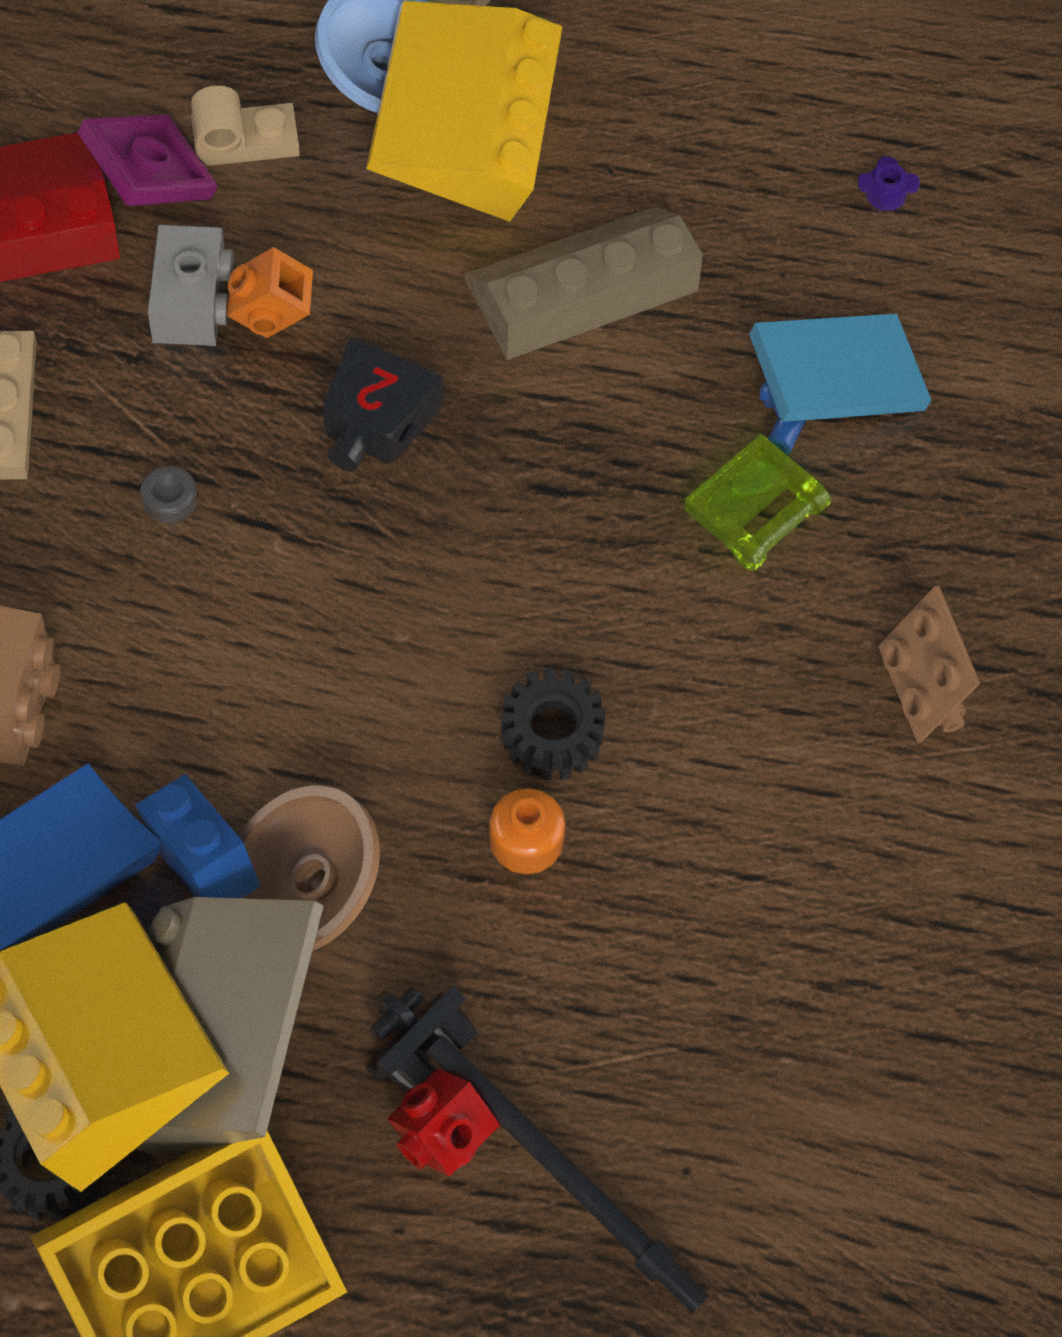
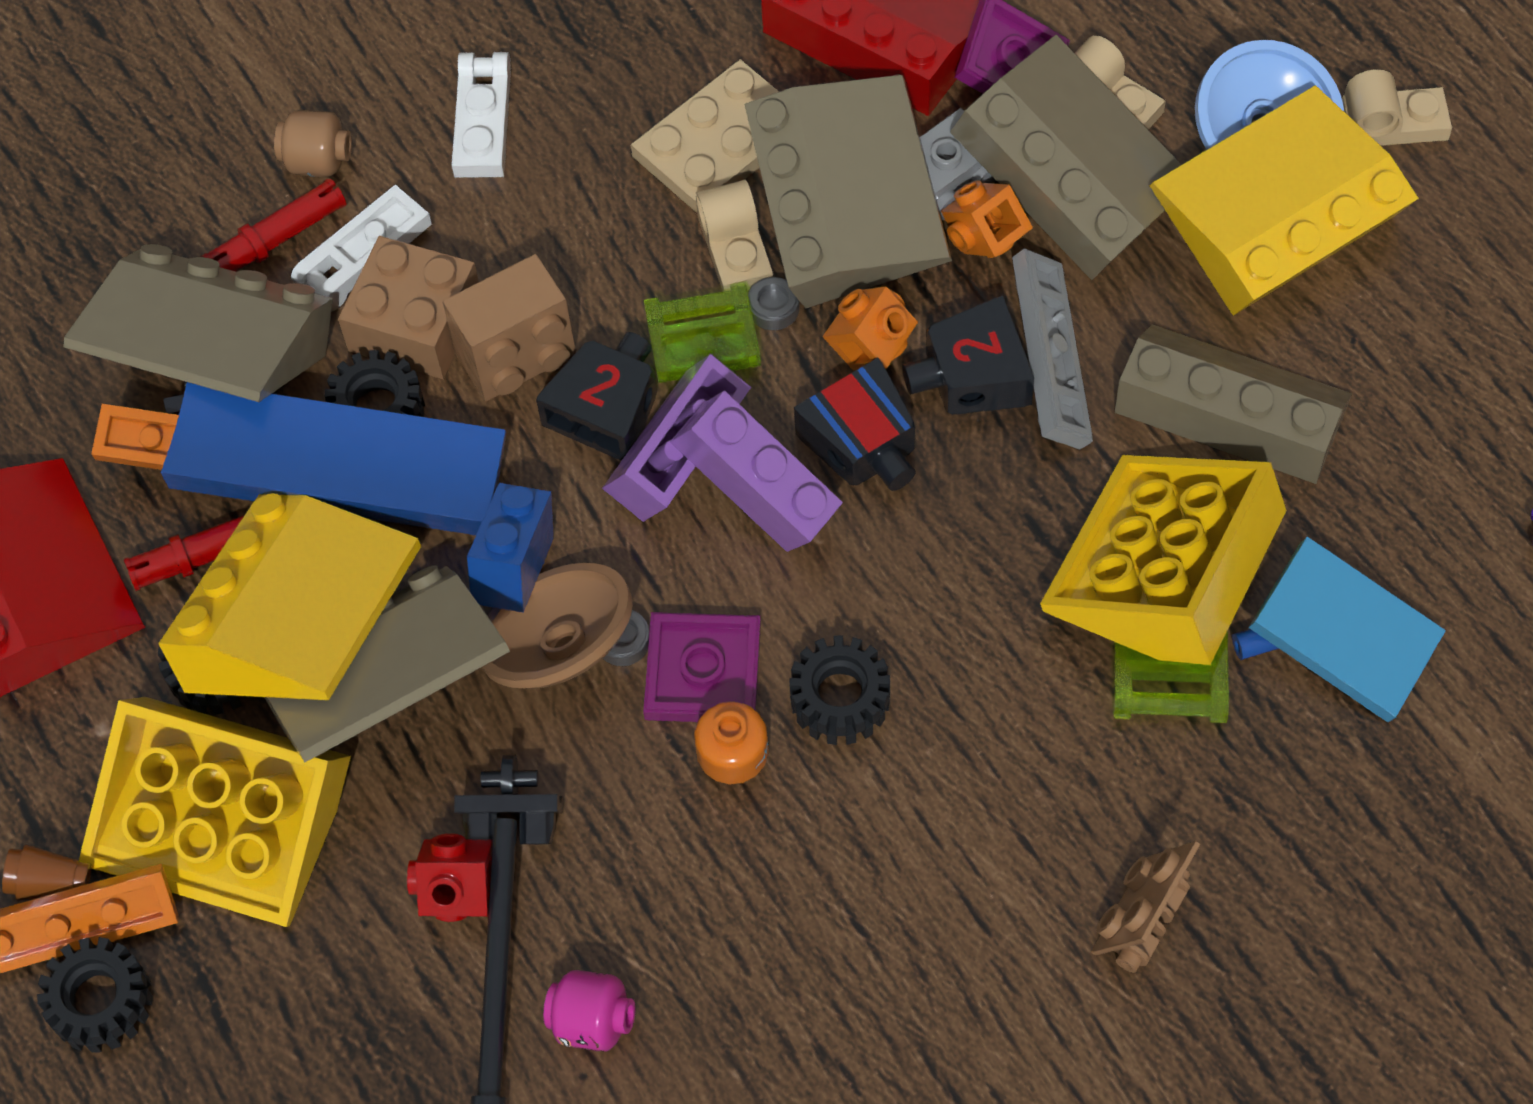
camera: 55 degrees right, 0 degrees up
(70, 465) = (732, 234): none -> tan plate
(127, 674) = (602, 396): none -> black torso
(141, 352) = (846, 186): none -> dark tan slope
(153, 571) = (684, 344): none -> clear neon green plate
(227, 652) = (653, 466): none -> medium lavender brick
(276, 446) = (870, 327): none -> orange brick
(284, 189) = (1068, 154): none -> dark tan slope
(325, 618) = (756, 472): none -> medium lavender brick
(351, 525) = (860, 428): none -> torso
(366, 314) = (1052, 349): none -> light grey plate
(431, 803) = (700, 663): none -> magenta tile
(647, 1116) = (588, 1010): none -> dark pink head
(671, 420) = (1169, 554): none -> yellow slope

